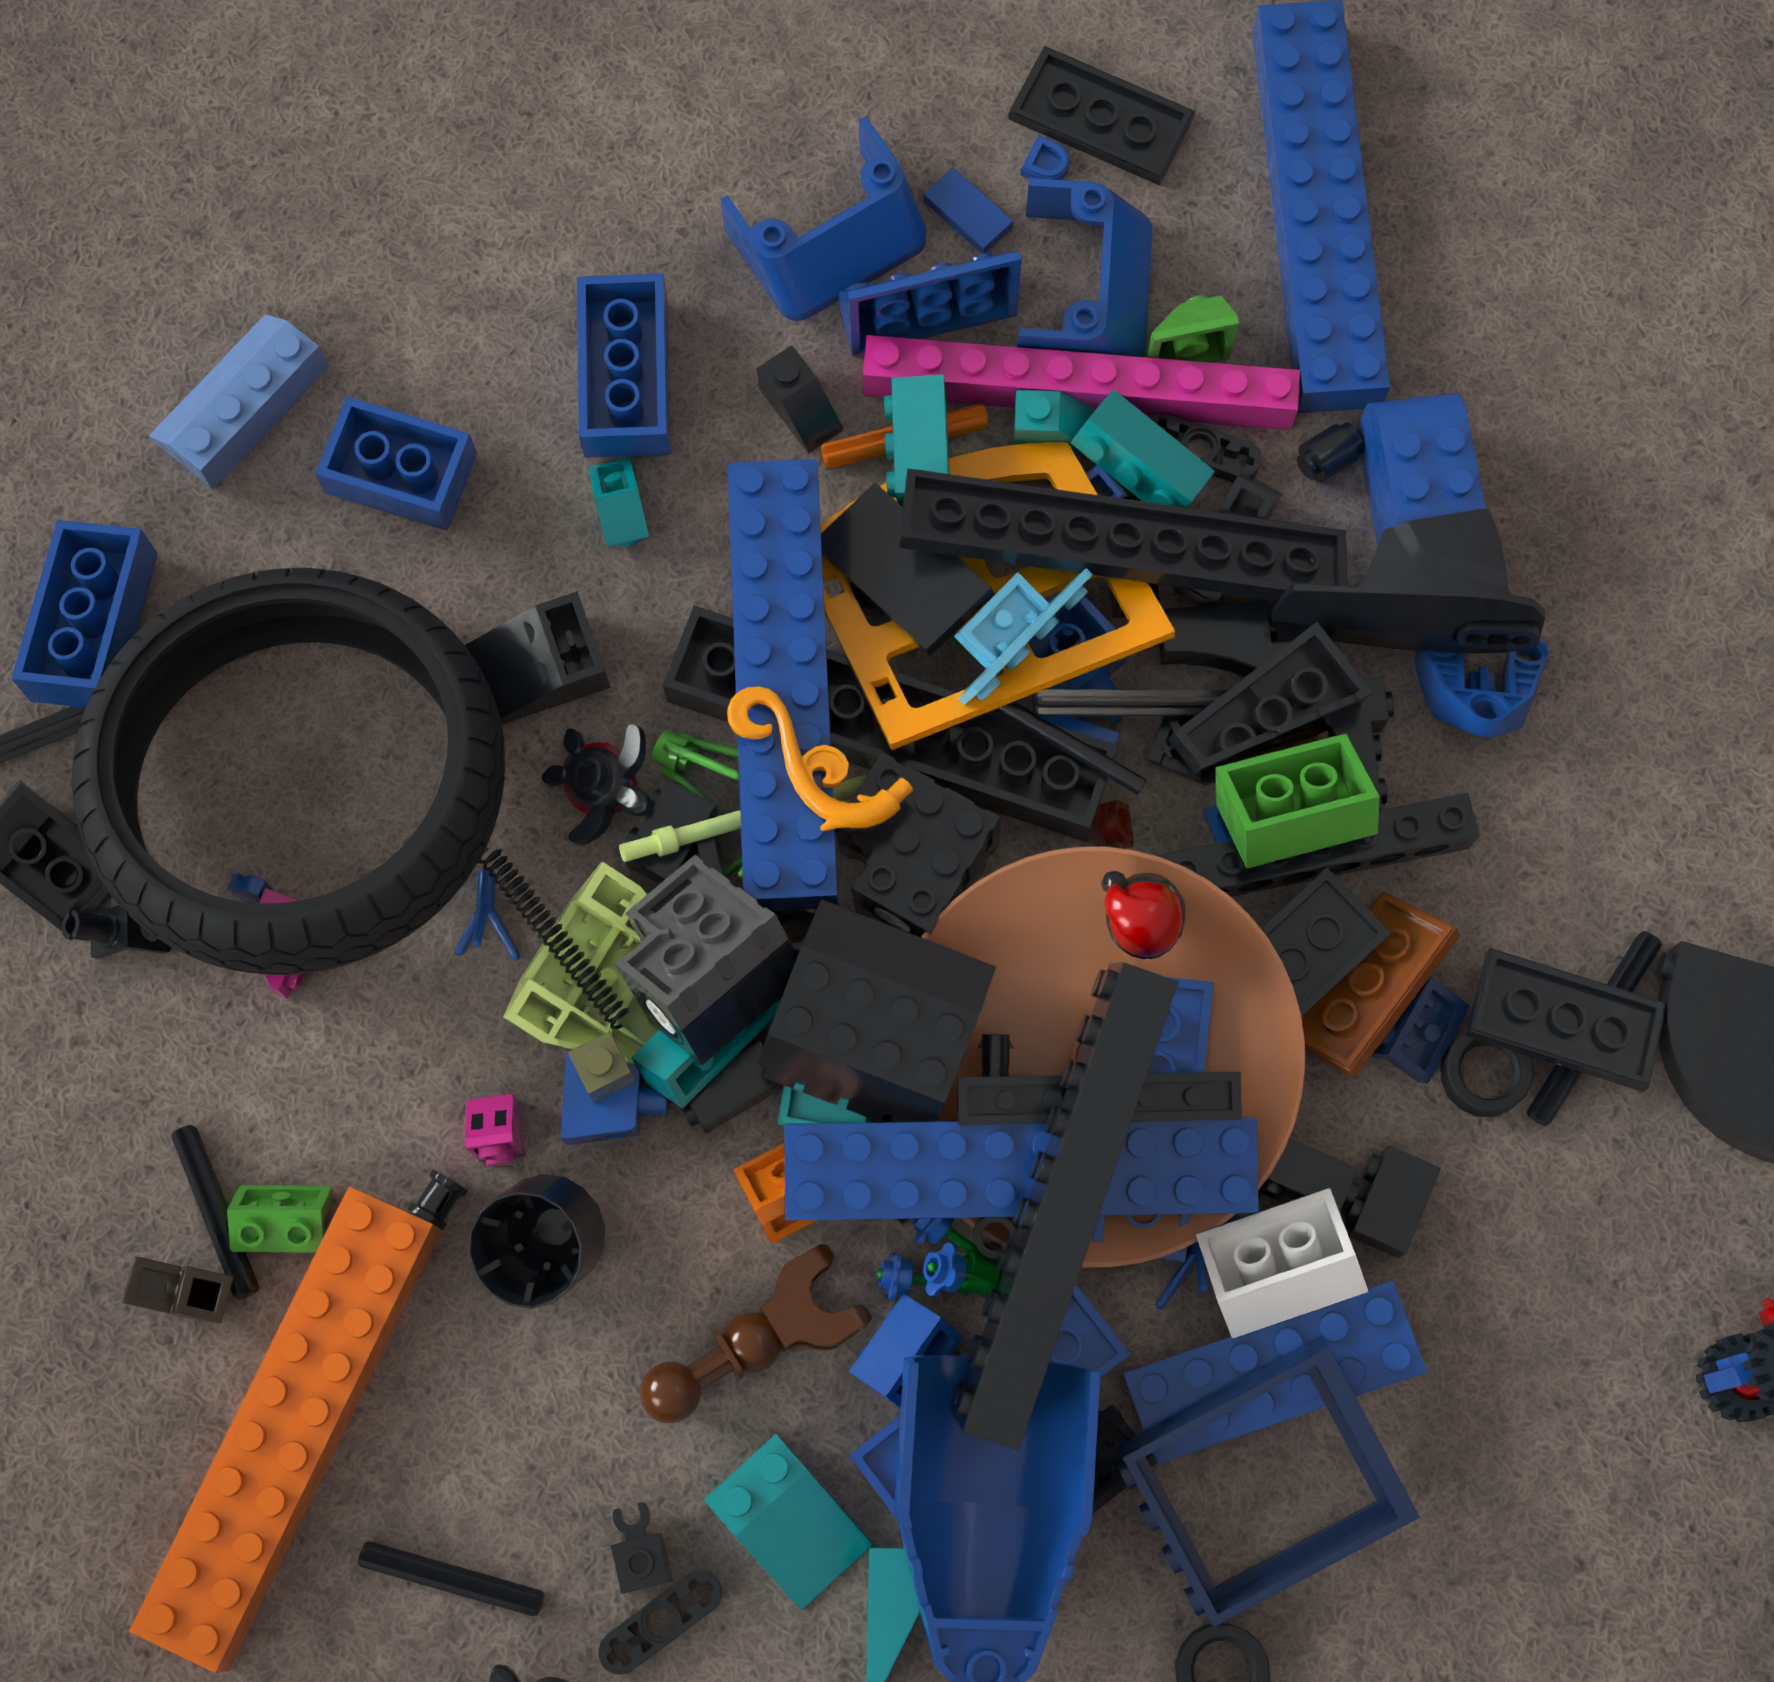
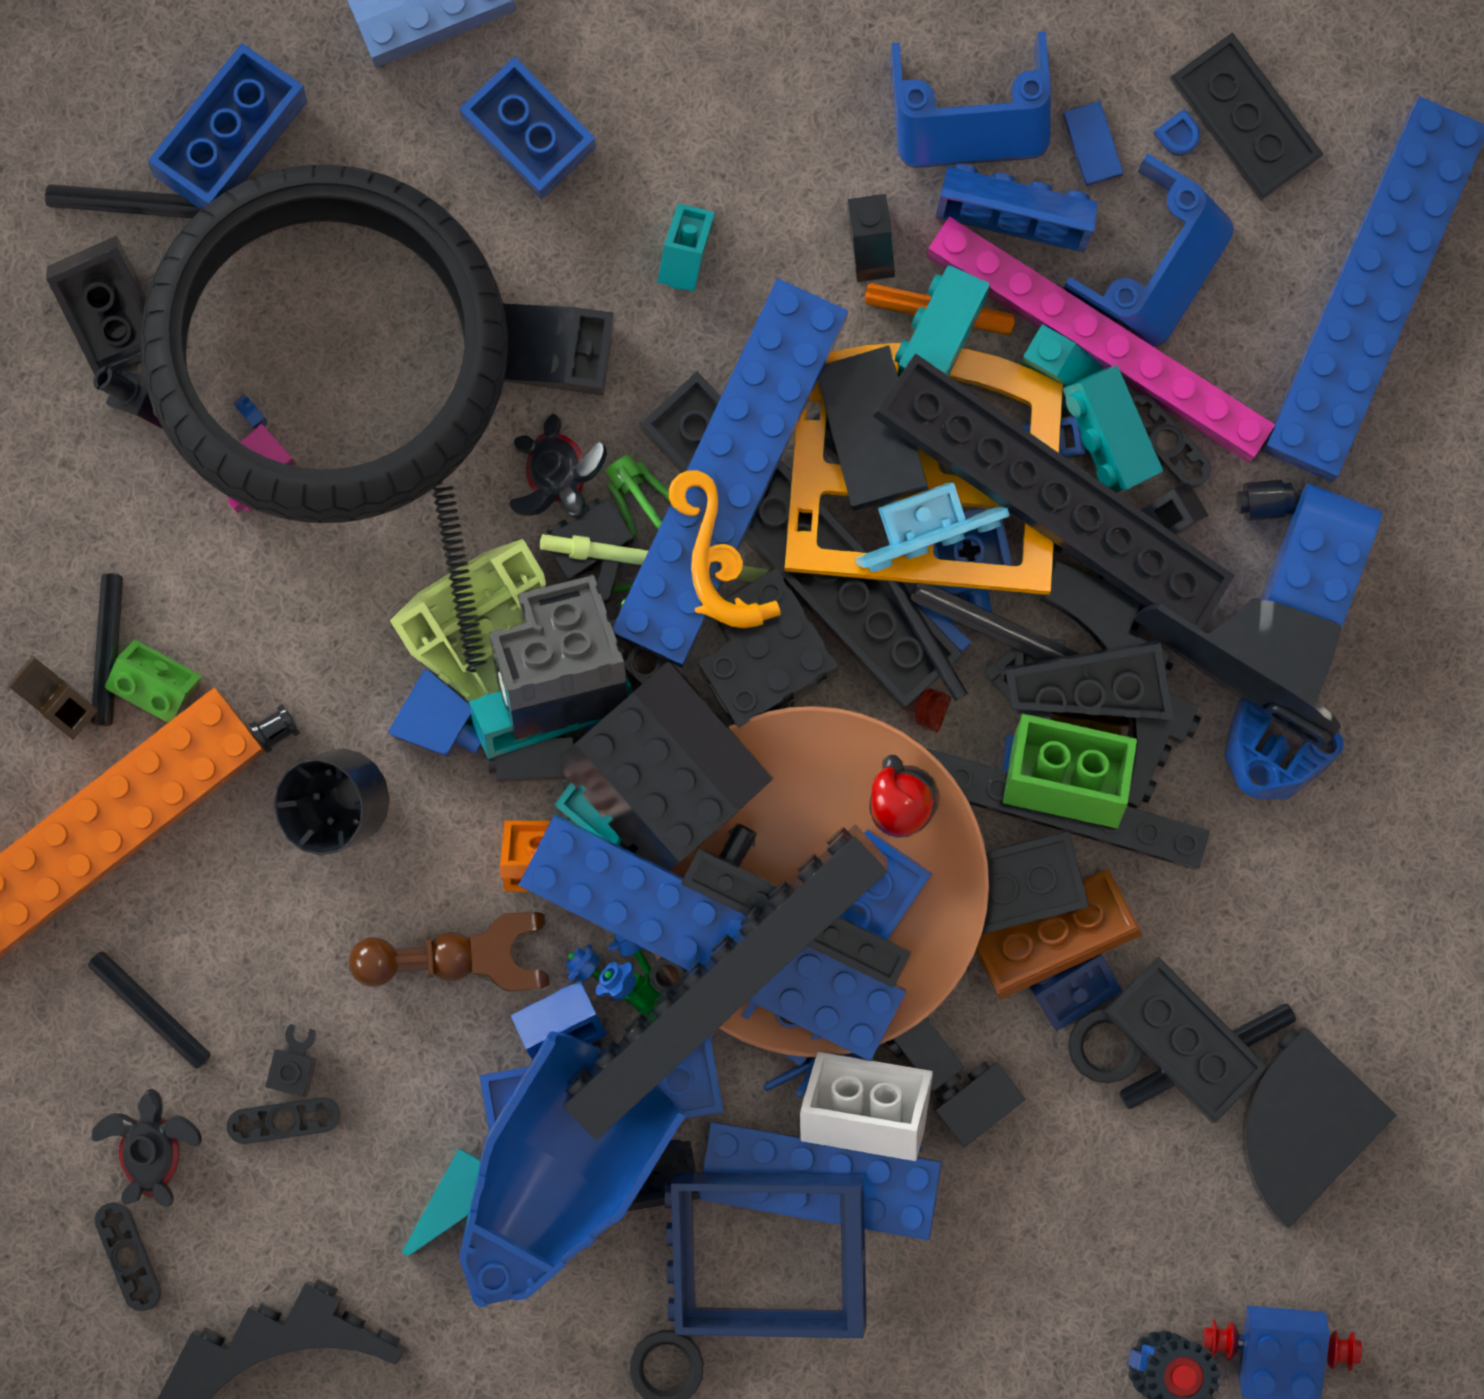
camera: 25 degrees right, 10 degrees up
(485, 908) = (418, 523): blue plant -> none
(494, 1129) = (342, 699): dark pink slope -> none
(601, 1067) = (443, 698): olive brick -> none
(623, 365) = (746, 138): blue brick -> none
(788, 1522) = (411, 1098): teal slope -> none
(1196, 331) = (1211, 346): bright green slope -> none

